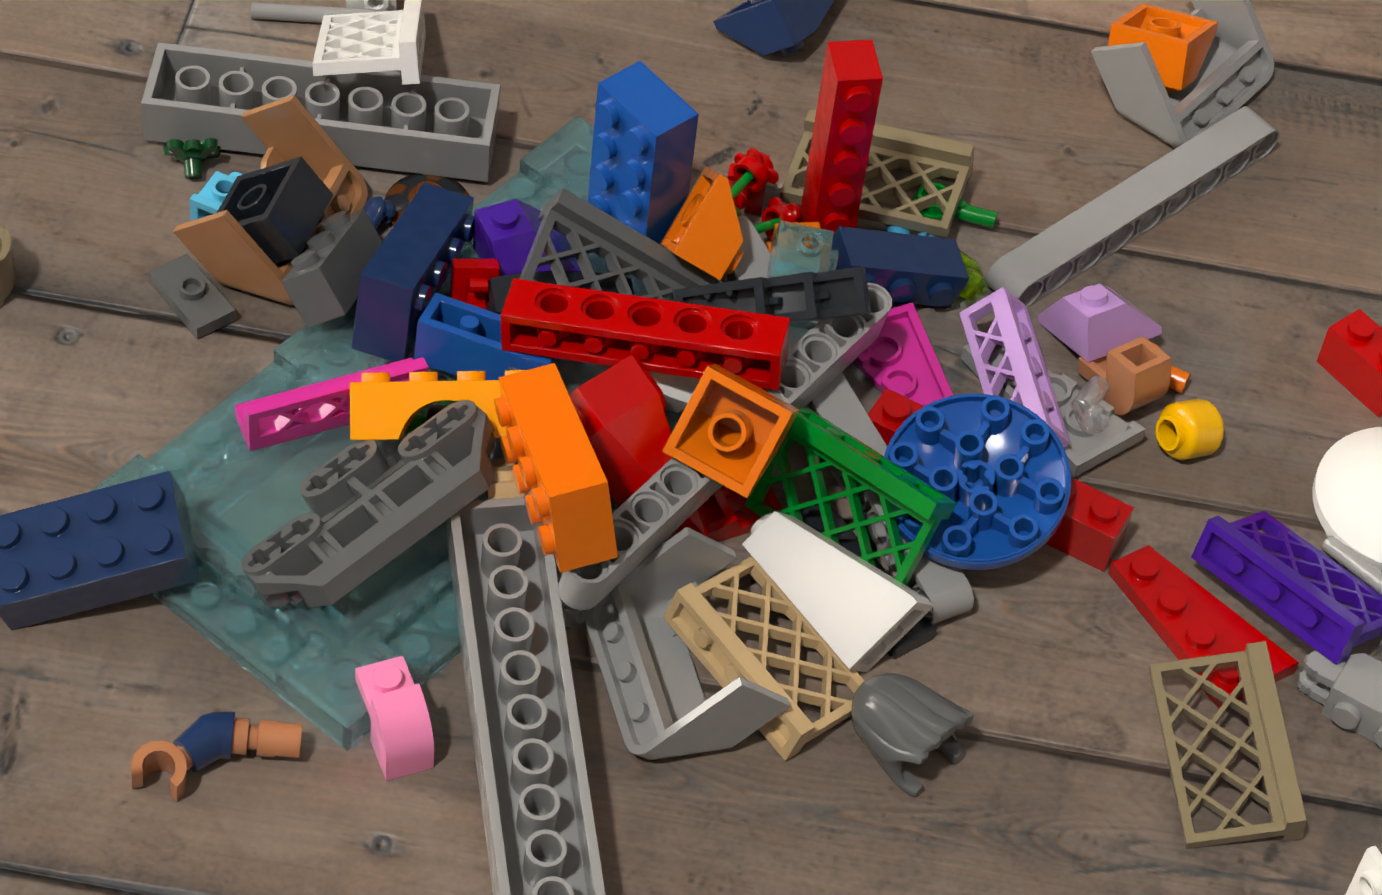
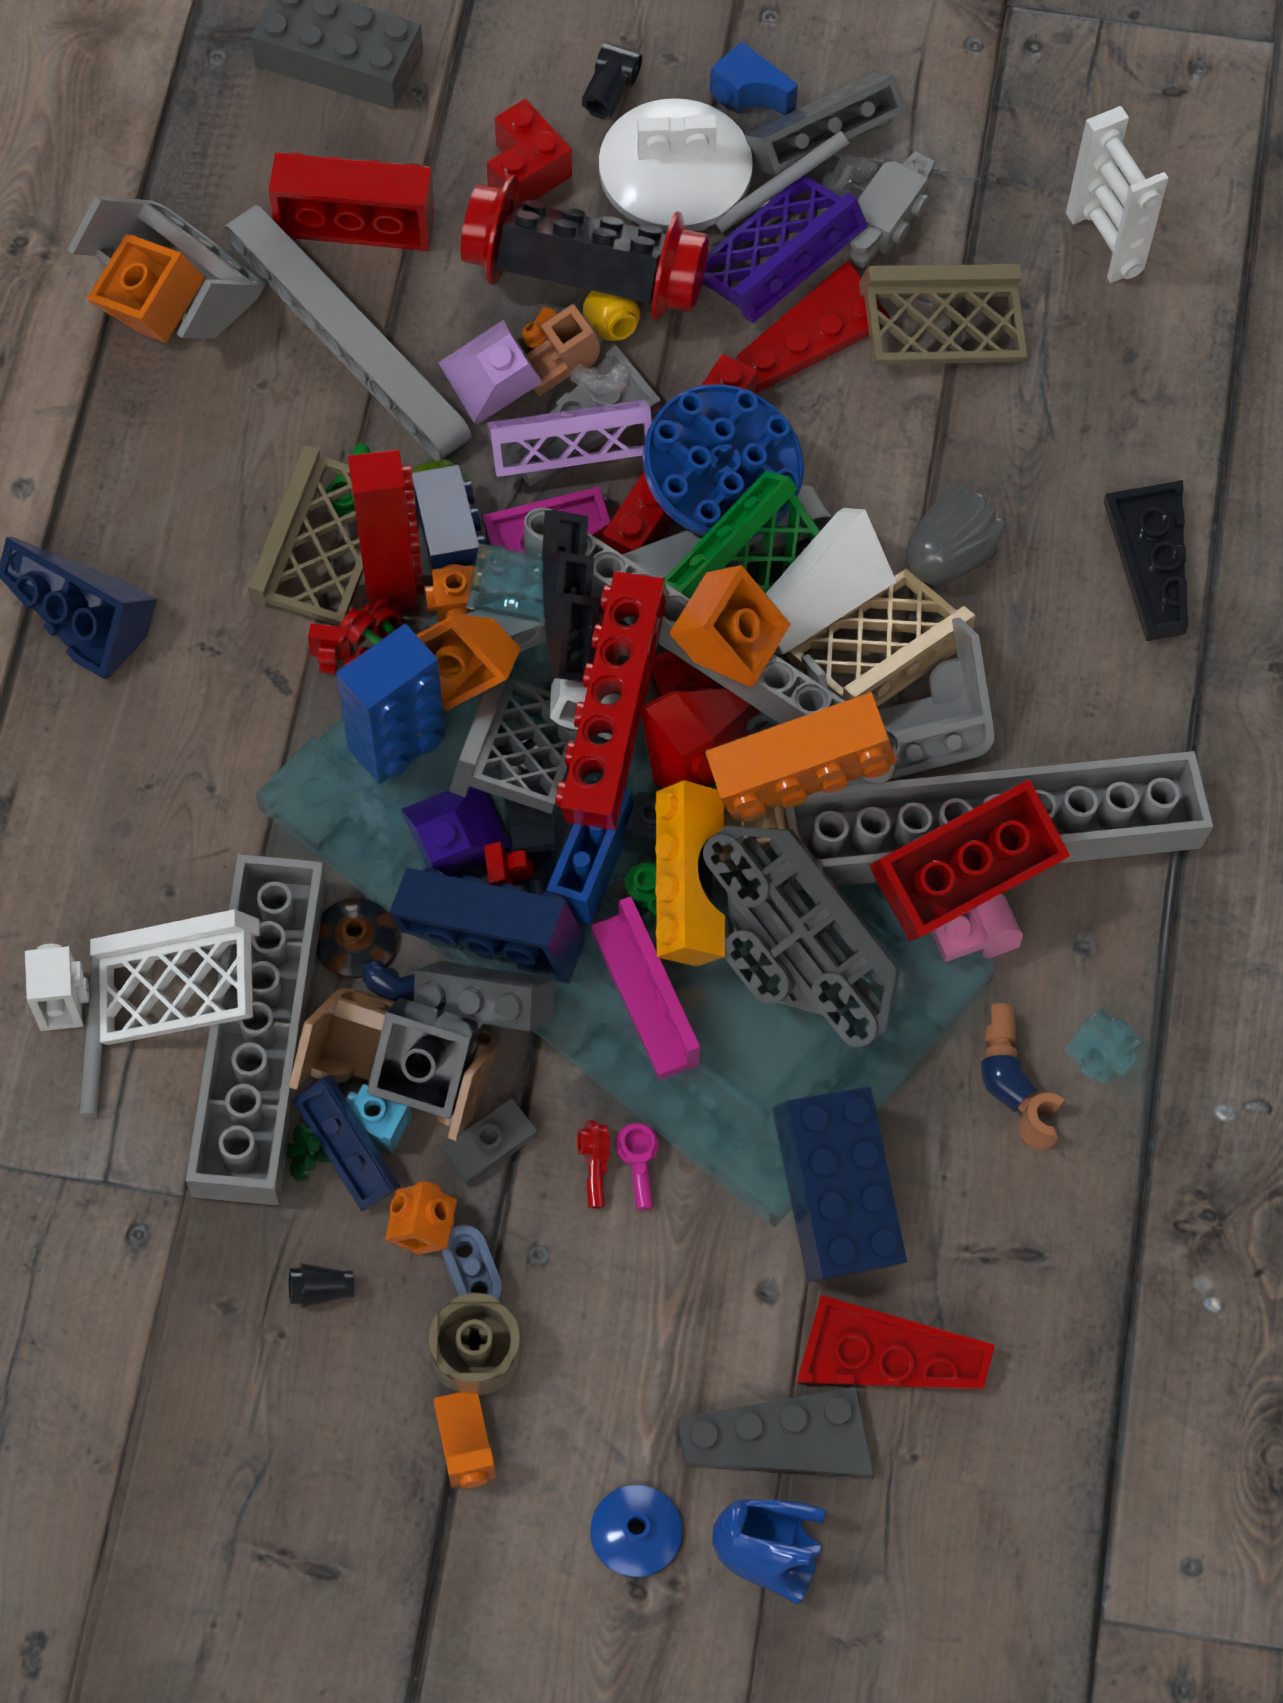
camera: 85 degrees left, 15 degrees up
(54, 157) = (318, 1285): none -> black cone
(54, 272) = (474, 1270): none -> sand blue plate
(93, 223) = (421, 1218): none -> orange brick
(169, 410) = (637, 1147): none -> dark pink plate
(174, 373) = (594, 1144): none -> red plate
(193, 172) = (346, 1143): none -> dark blue tile
(239, 830) = (1104, 1047): none -> clear light blue brick
(446, 651) = (969, 860): none -> red brick
(1252, 386) = (583, 249): none -> black brick
(1292, 202) = (352, 201): none -> red brick

